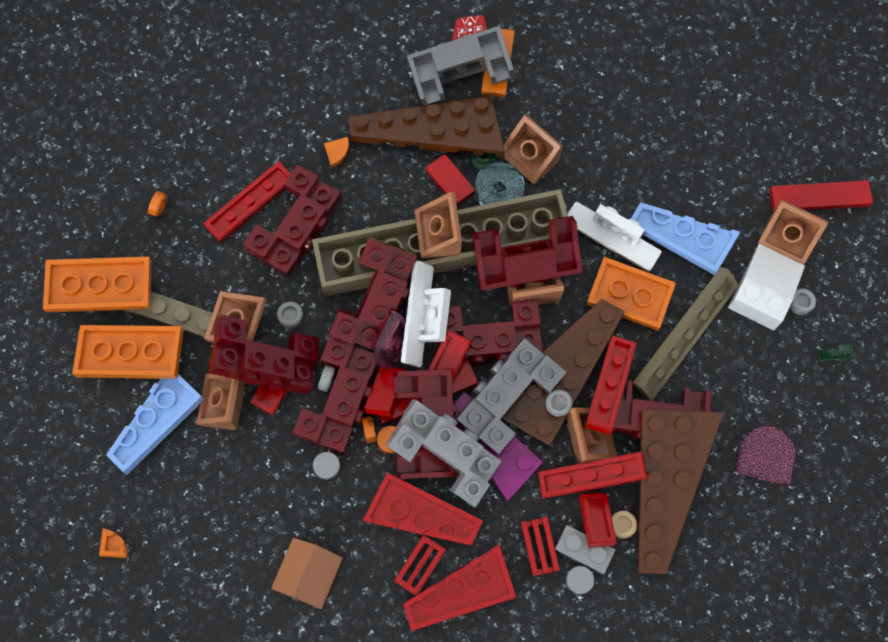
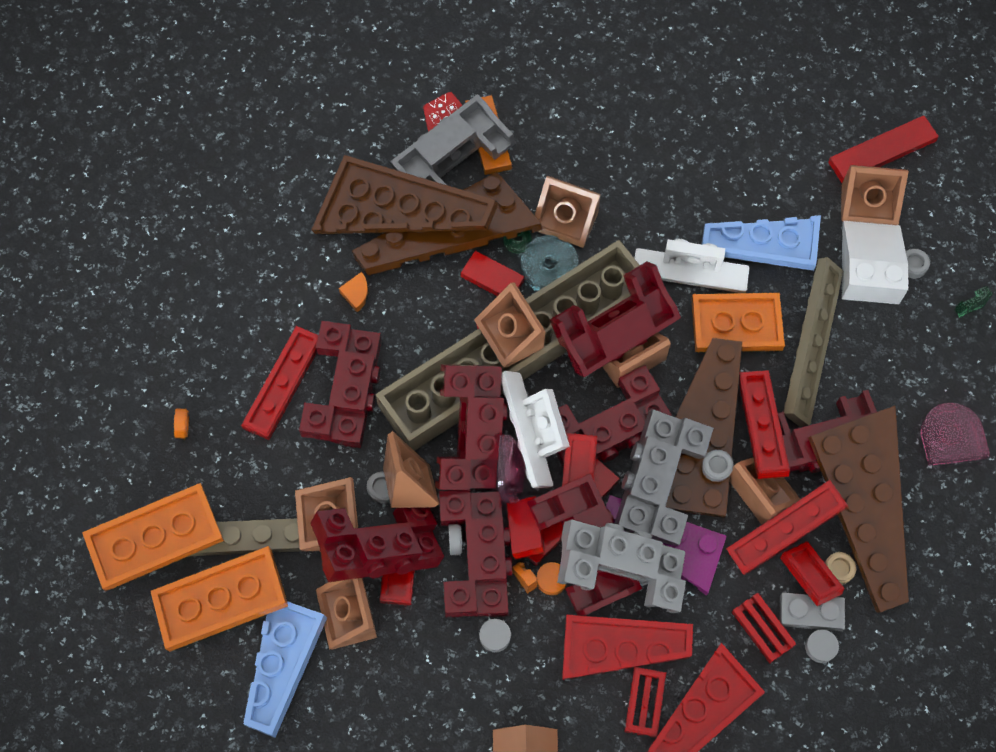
camera: 20 degrees left, 5 degrees down
(311, 315) = (407, 476): none -> nougat slope
(391, 87) = (387, 200): none -> reddish brown wing

